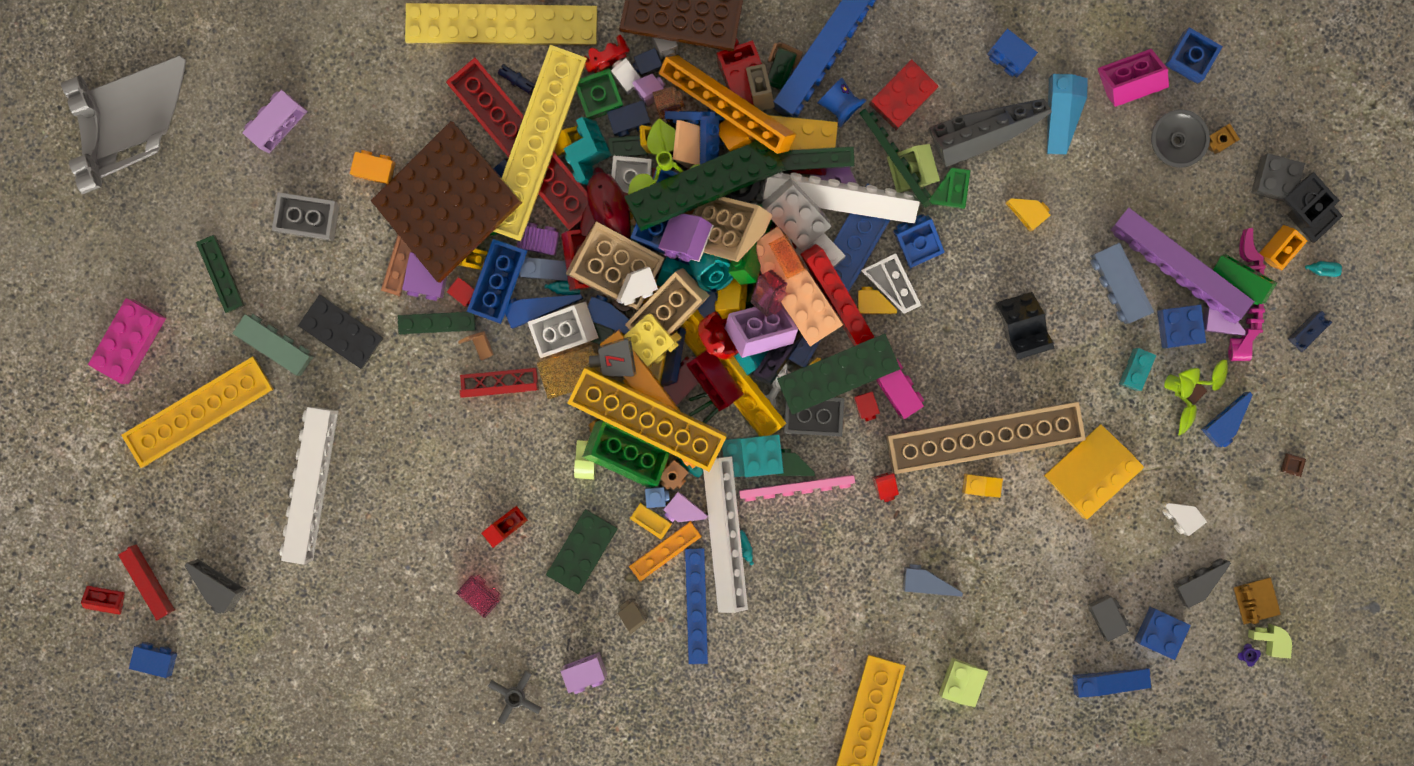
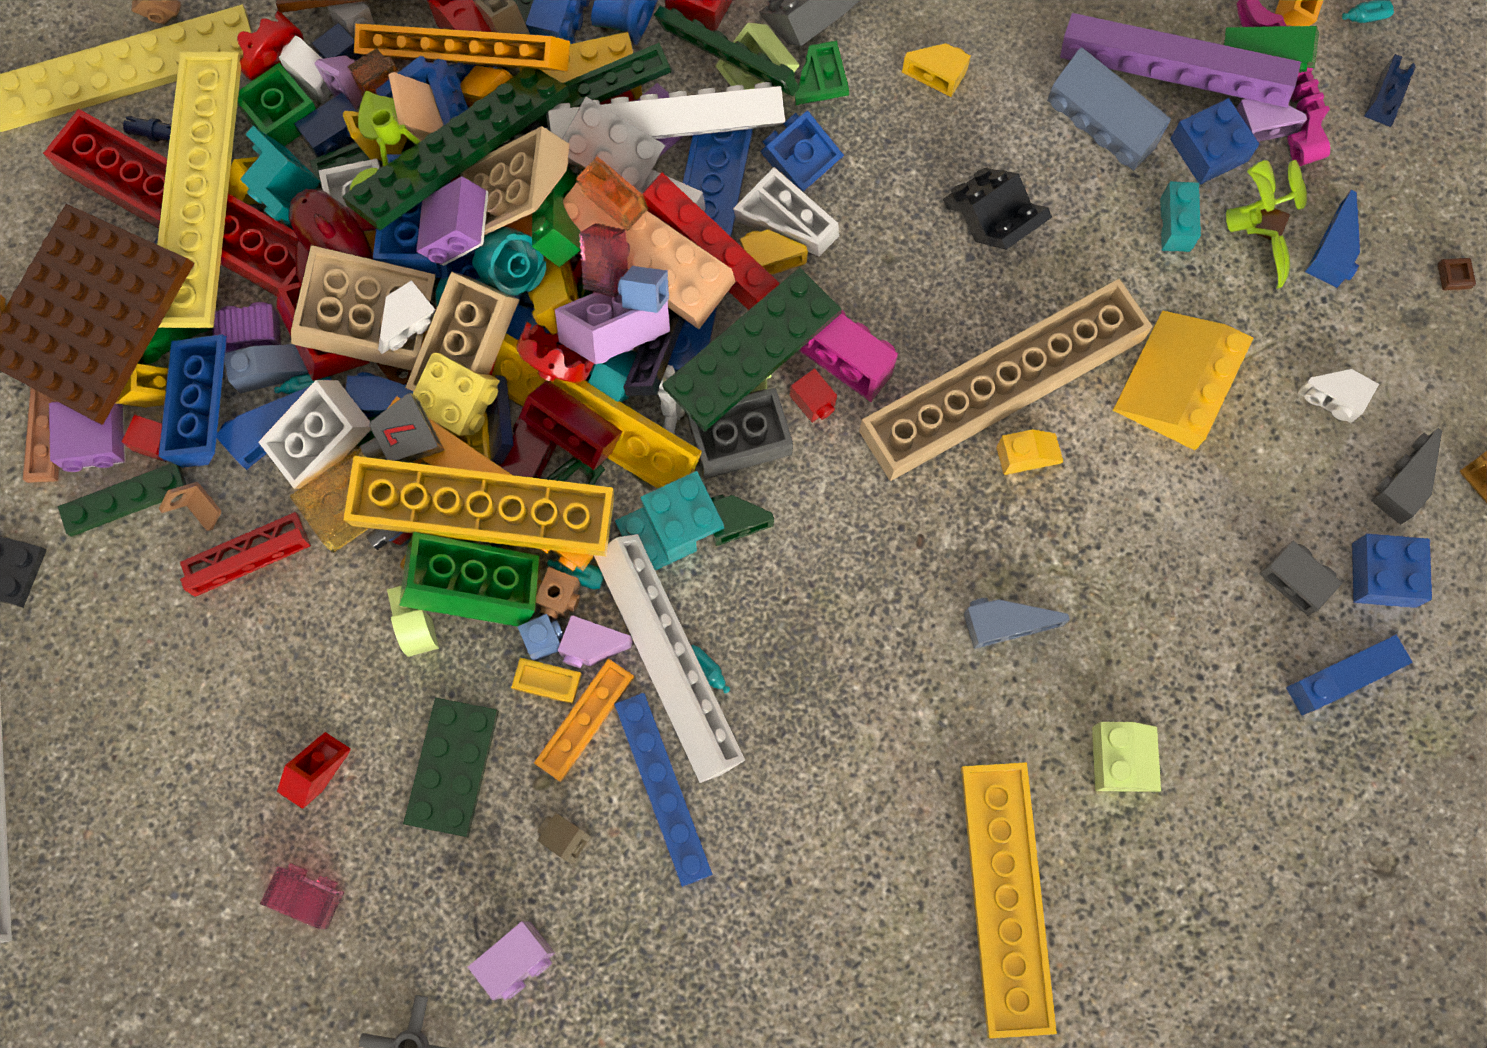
camera: 25 degrees left, 15 degrees down
(785, 322) = (644, 289): none -> medium blue brick
(804, 486) = (743, 554): bright pink plate -> none
(886, 486) = (887, 497): red slope -> none

